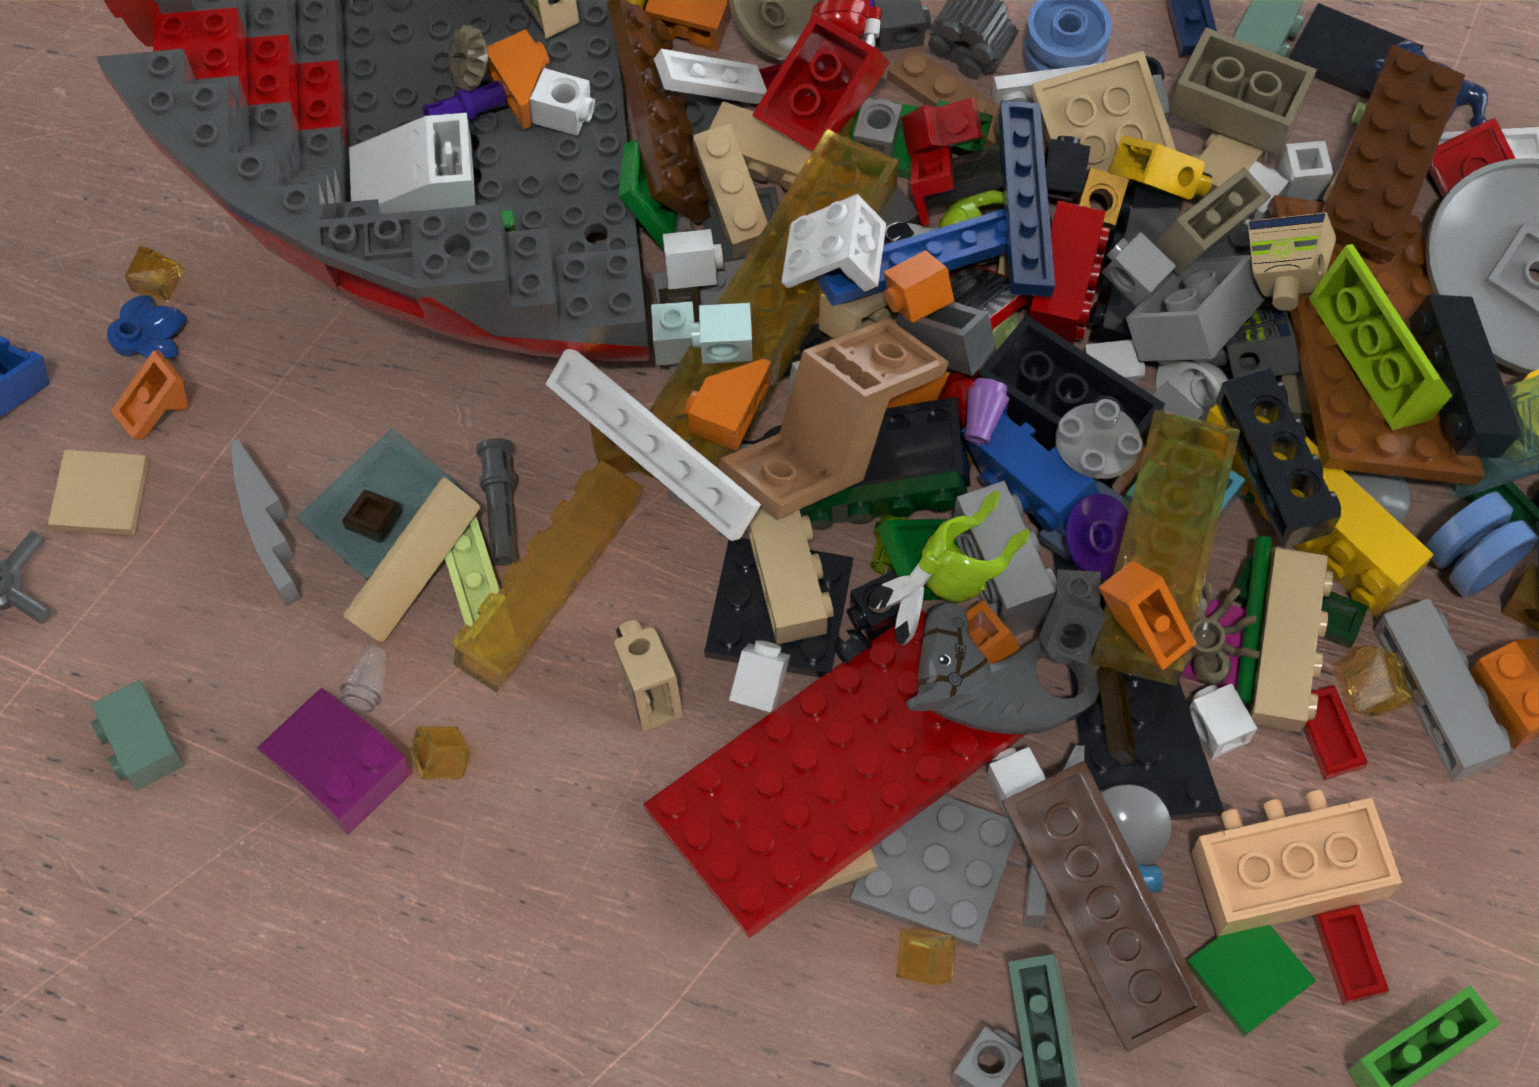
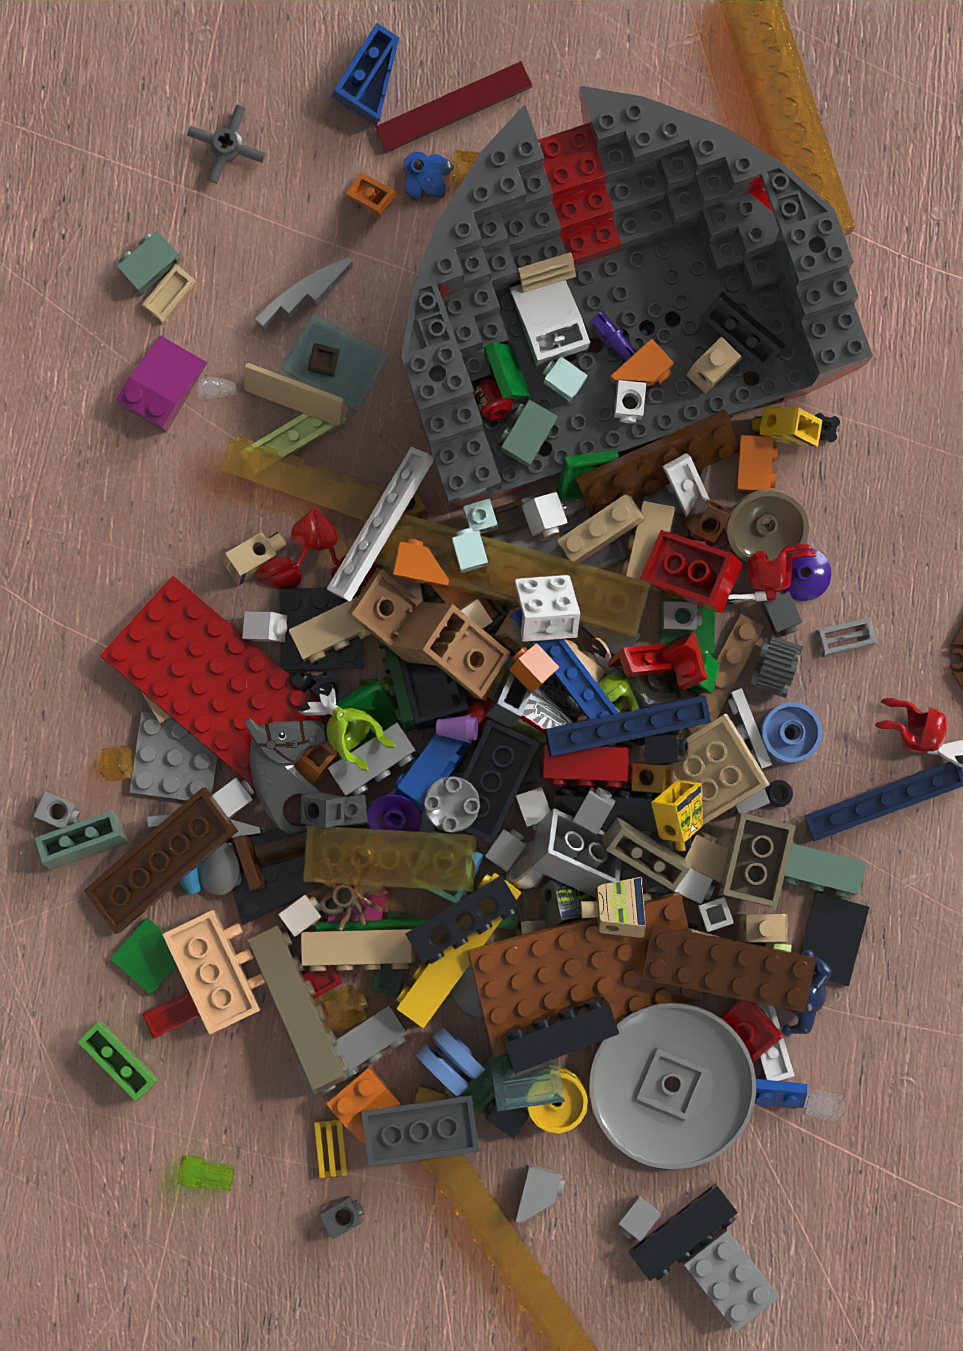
camera: 80 degrees right, 20 degrees up
(62, 278) = (453, 106): none -> dark red tile
(98, 492) = (305, 184): tan tile -> none
(196, 721) = (169, 293): none -> tan tile
(347, 152) = (547, 272): none -> tan tile
(439, 752) = (179, 445): clear yellow slope -> none
(468, 58) = (645, 329): dark tan gear -> none
(498, 484) = (365, 431): dark grey pin -> none
(506, 171) = (564, 378): none -> light aqua brick
(571, 222) = (528, 432): none -> sand green brick
(639, 534) = (310, 531): none -> red plant
(750, 63) = (701, 510): none -> reddish brown brick
(1134, 768) = (249, 862): none -> reddish brown tile
(1148, 613) = (329, 852): orange slope -> none
(1334, 108) = (761, 927): none -> tan torso
(1376, 742) = (298, 1009): none -> dark tan brick
(1378, 343) = (561, 975): lime slope -> none

